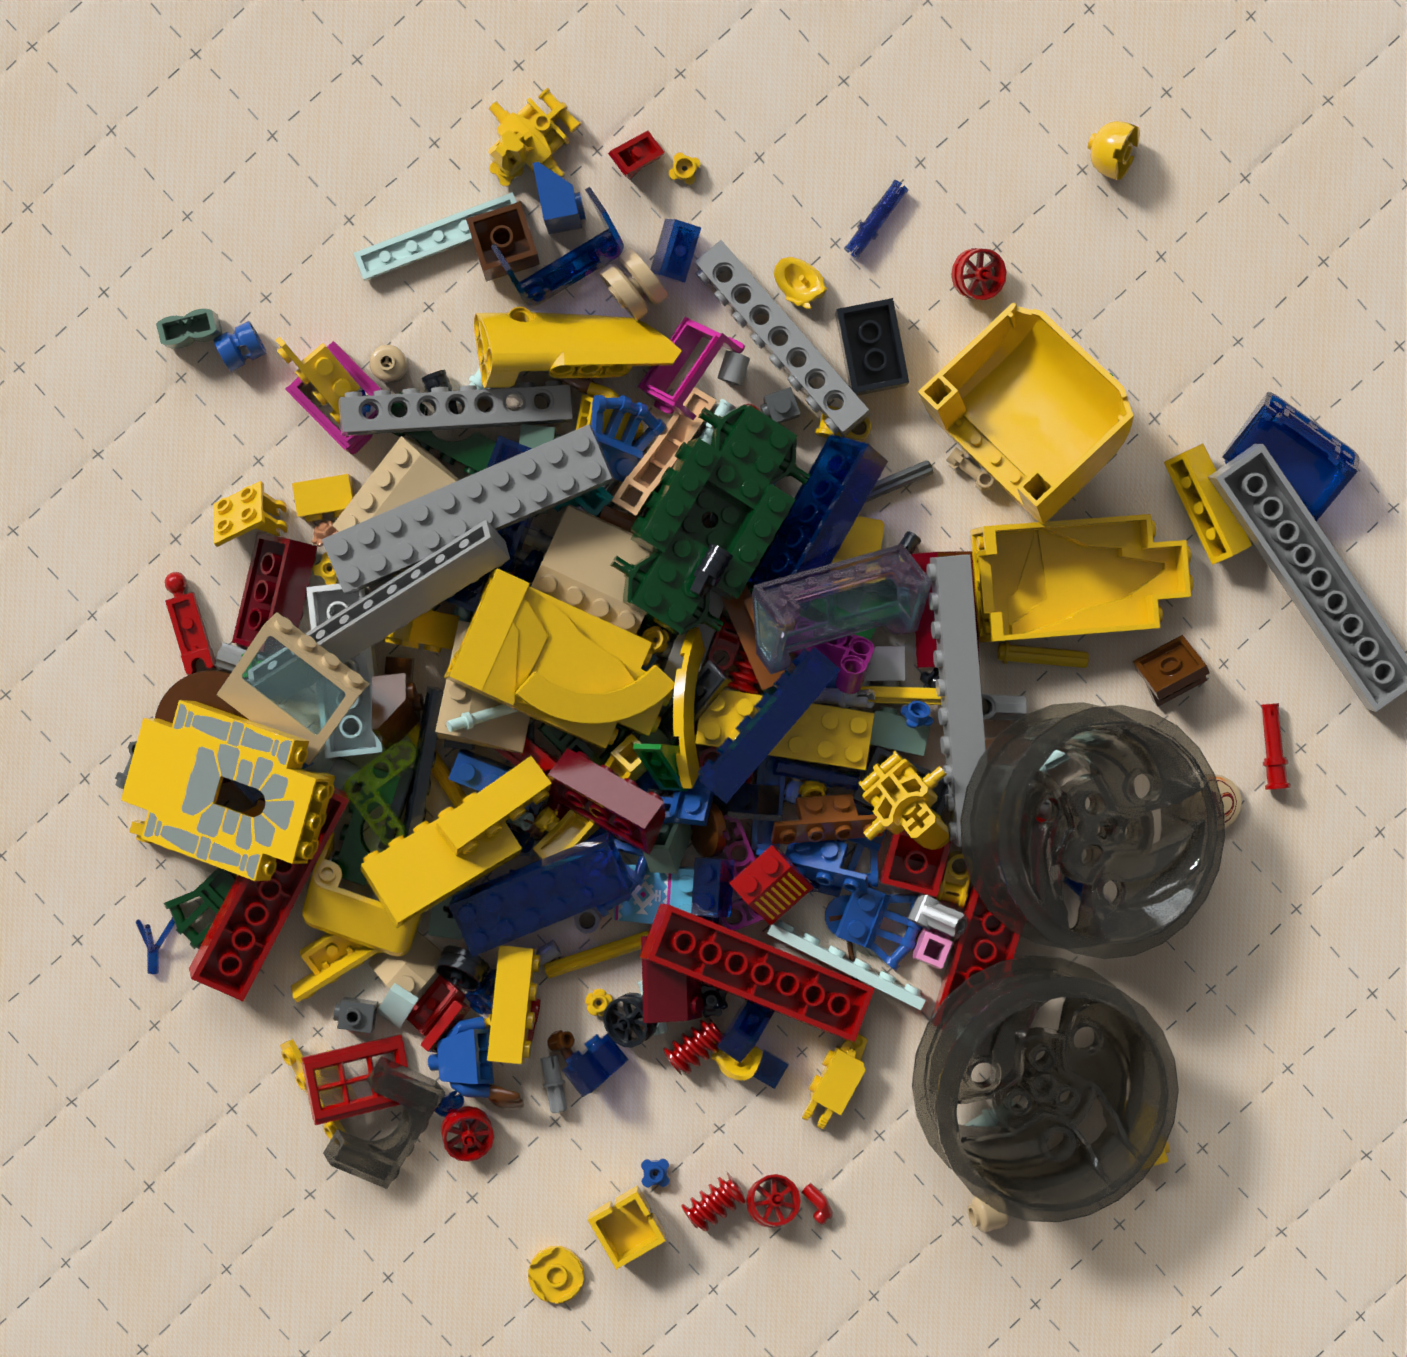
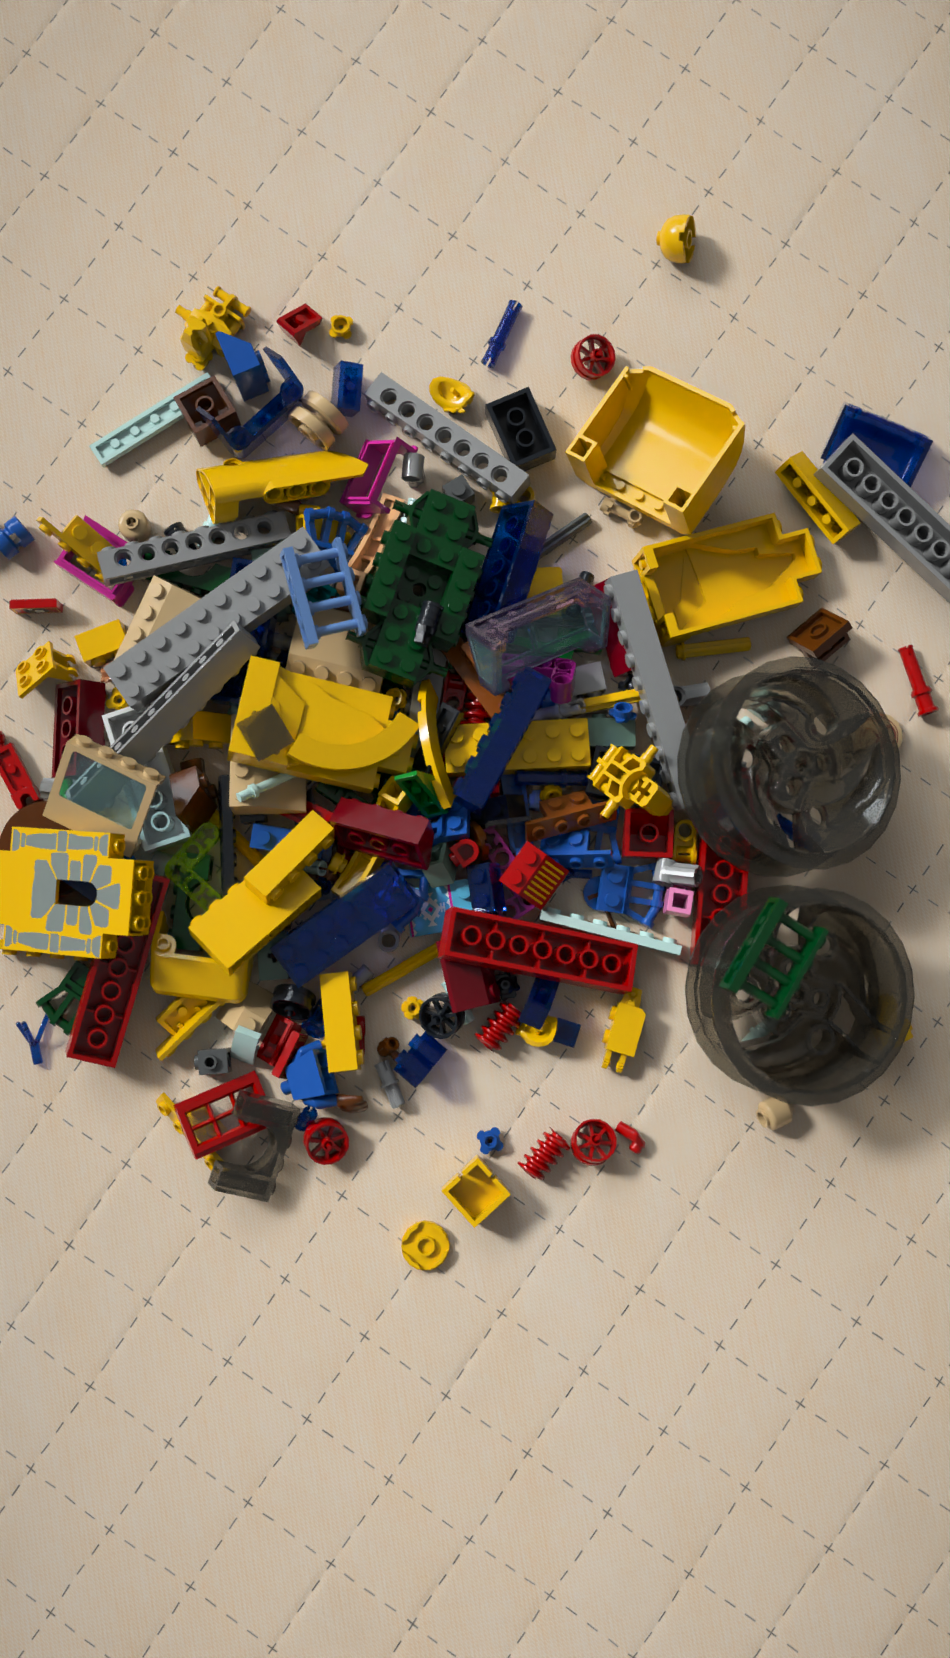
camera: 15 degrees left, 5 degrees down
(253, 434) = (33, 606): none -> red tile
(399, 802) = (214, 873): black tile -> none
(496, 664) = (265, 732): none -> clear smoke piece
(570, 498) = (305, 609): none -> medium blue fence
(696, 841) = (464, 852): none -> red plate
(1008, 1024) = (749, 957): none -> dark green fence

